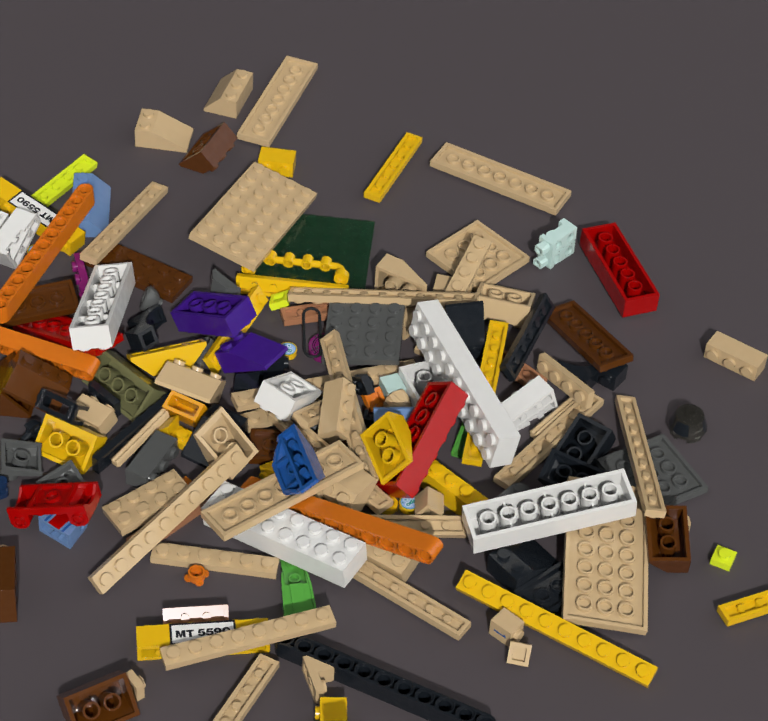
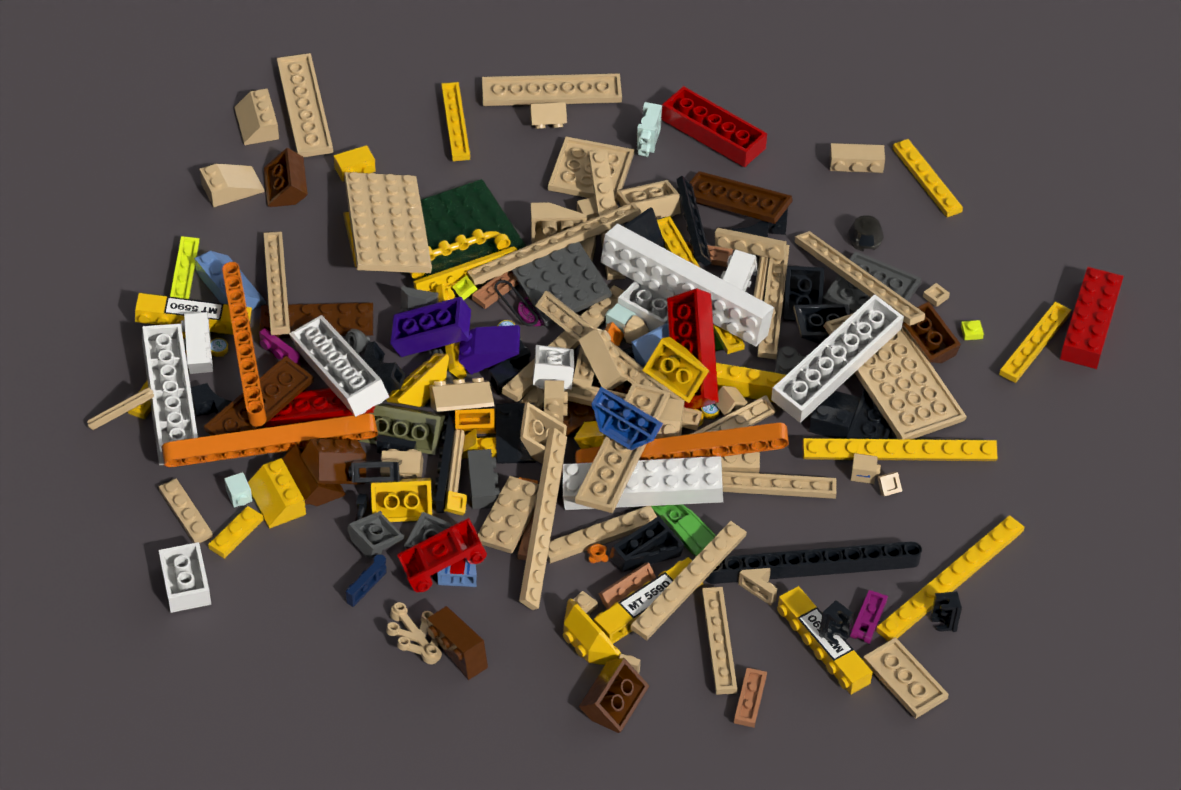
camera: 30 degrees left, 5 degrees up
(111, 469) = (455, 503): none -> yellow plate
(119, 637) = (587, 637): none -> yellow wedge
(145, 612) = (586, 602): none -> tan plate
(240, 589) = (648, 544): none -> black wedge
(262, 424) = (554, 399): none -> tan brick
(363, 383) = (605, 323): black plate -> none
(477, 195) = (548, 114): none -> tan brick
(712, 509) = (936, 294): none -> tan plate

